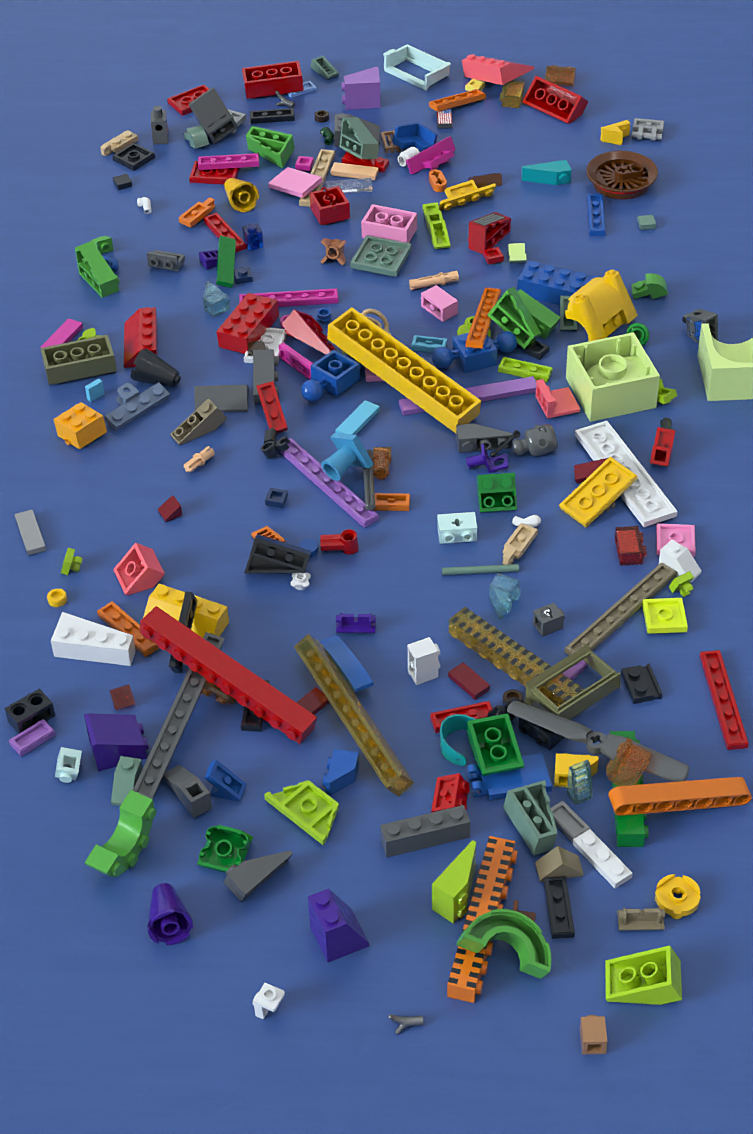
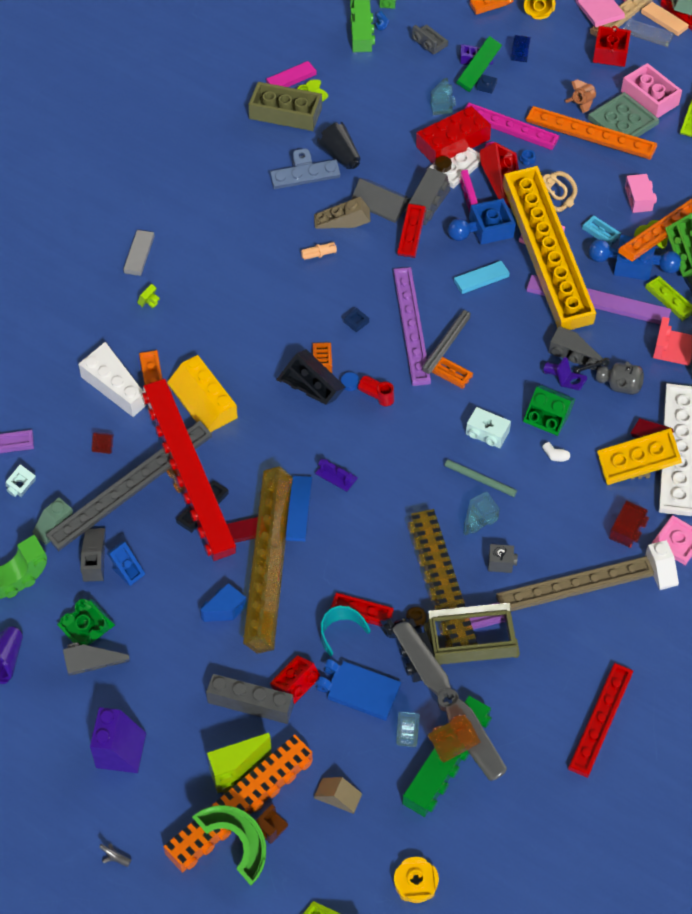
camera: 30 degrees right, 10 degrees up
(29, 710) = (25, 417): black brick -> none
(57, 597) = (118, 324): yellow tile -> none
(80, 425) = (243, 171): light orange brick -> none
(94, 390) = (280, 142): medium azure tile -> none
(115, 737) = (68, 478): dark purple slope -> none
(138, 570) = (197, 332): coral slope -> none
(140, 333) = (357, 106): red slope -> none
(170, 509) = (262, 287): dark red slope -> none
(186, 618) = (193, 399): black tile -> none
(220, 227) = (502, 31): red tile -> none
(267, 999) = (20, 774): white bracket -> none
(271, 446) = (390, 265): black bar -> none
(300, 580) = (320, 413): white plate -> none
(307, 808) = (175, 624): lime wing -> none
(349, 453) = (434, 311): dark azure plant -> none
(363, 275) = (591, 132): none -> orange tile
(381, 461) = (472, 327): clear orange piece -> none
(423, 660) = (361, 541): white brick -> none
(440, 278) = (656, 167): light nougat pin -> none
(469, 680) = (391, 579): dark red tile -> none
(494, 744) = (361, 654): green slope -> none
(518, 543) = (531, 470): tan hinge -> none
(532, 816) = (346, 734): sand green wedge -> none
(559, 907) = (311, 830): black tile -> none
(565, 760) = (413, 703): yellow slope -> none
(568, 821) = (377, 757): light grey tile -> none
(602, 858) = (380, 808): white plate -> none
(641, 683) = (538, 664): black plate -> none
(641, 919) = (368, 882): dark tan hinge -> none
(664, 615) = (608, 610): neon yellow plate -> none
(679, 796) = (482, 791): orange beam -> none
(682, 584) = (648, 587): lime tile -> none

